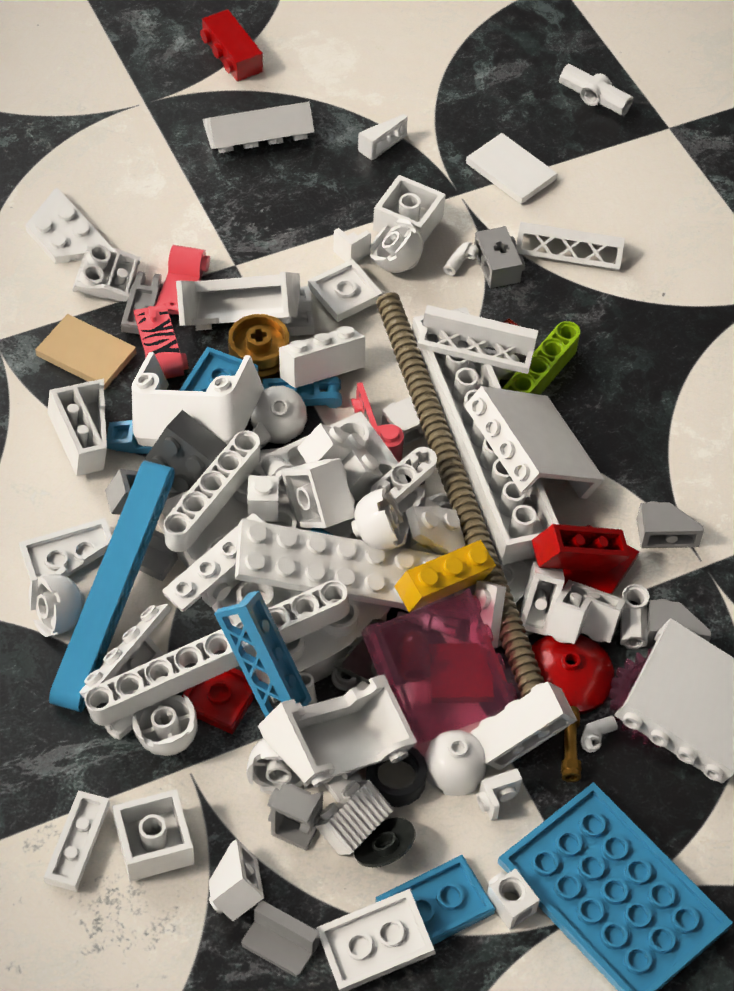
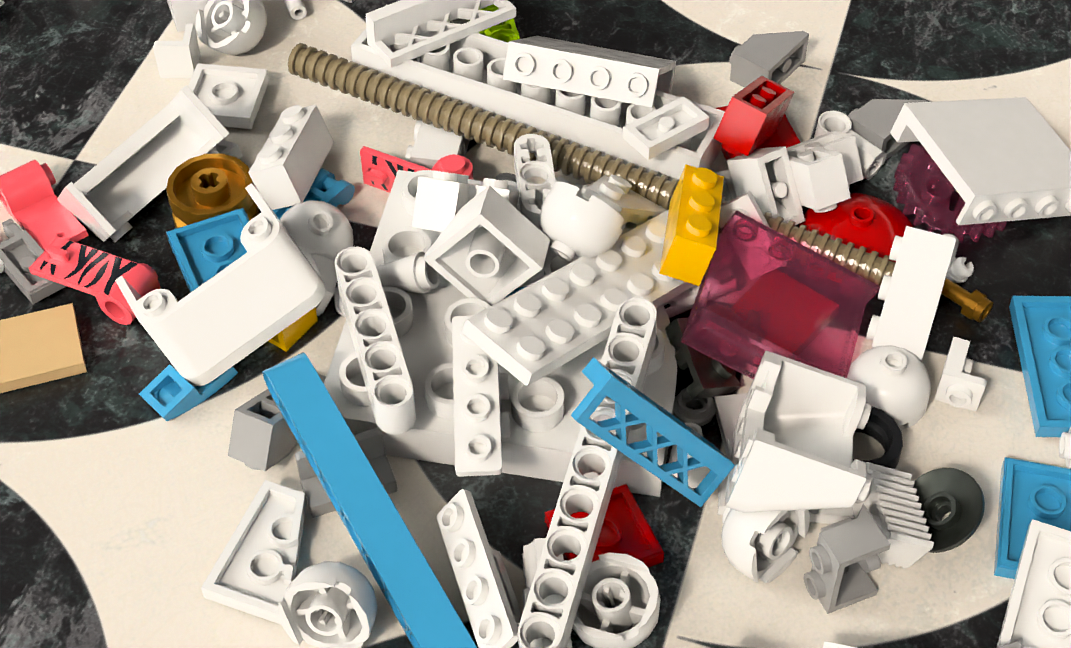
camera: 45 degrees left, 5 degrees down
(81, 424) = (119, 417): white wedge -> none
(187, 449) = (278, 327): dark grey brick -> none
(263, 497) = (435, 299): white brick -> none
(505, 510) = (665, 127): none -> white plate

